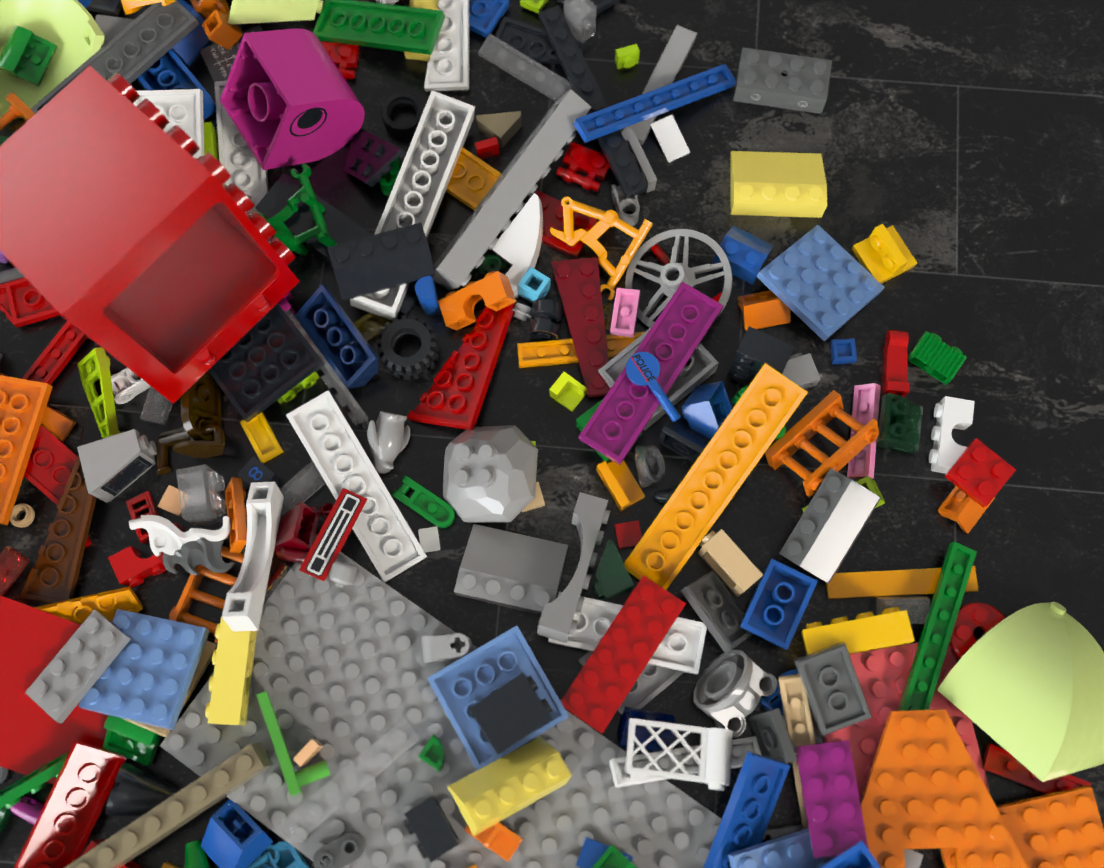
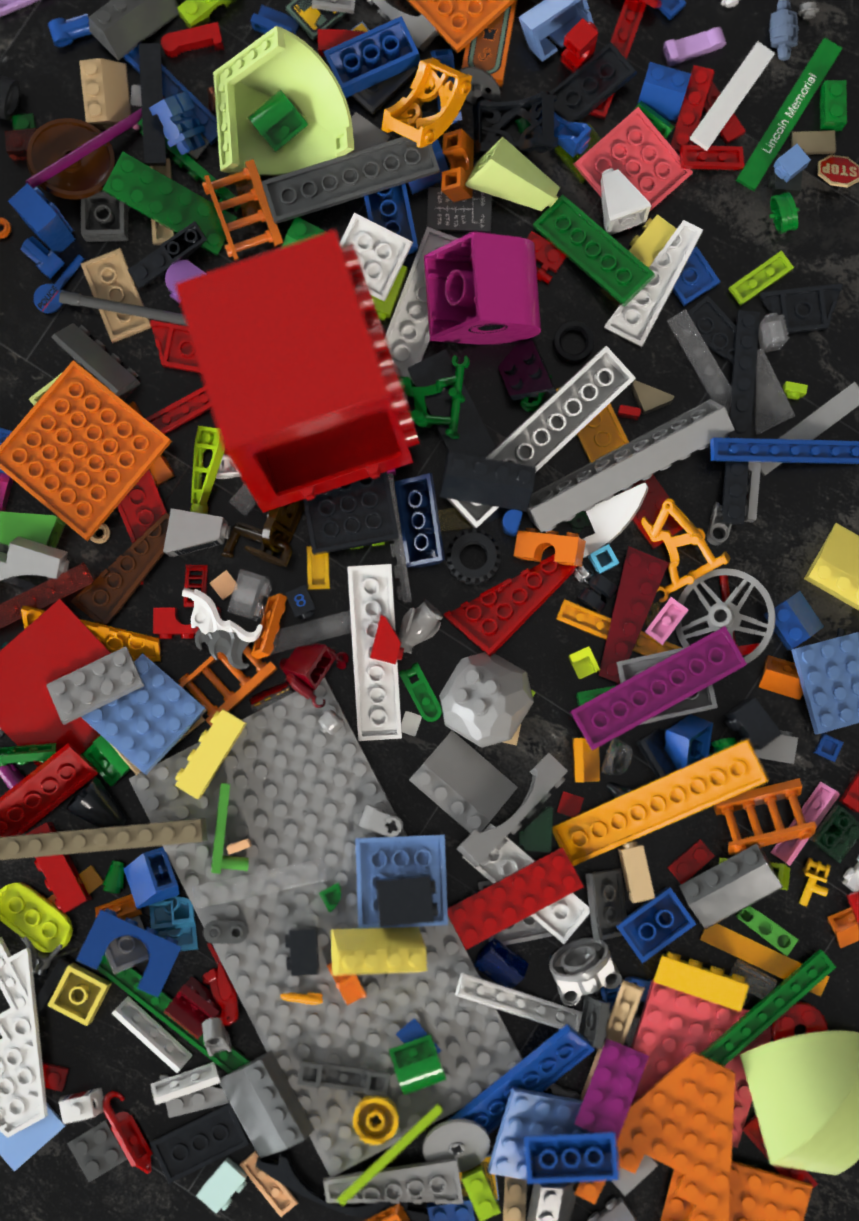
camera: 30 degrees right, 10 degrees up
(246, 597) = (255, 698): white arch -> none
(333, 535) = (338, 685): sticker -> none
(361, 467) = (386, 643): none -> red slope
(586, 161) = (710, 471): red plate -> none
(611, 75) = (771, 401): none -> clear wing
(643, 371) = (652, 685): blue piece -> none
(670, 138) = (790, 484): white sticker -> none
(713, 757) = (537, 1016): white piece -> none
(776, 527) = (690, 861): none -> red plate
(832, 688) = (659, 1011): dark grey tile -> none
(889, 552) = (768, 930): none -> bright green leg
(904, 487) = (814, 875): none -> yellow arm

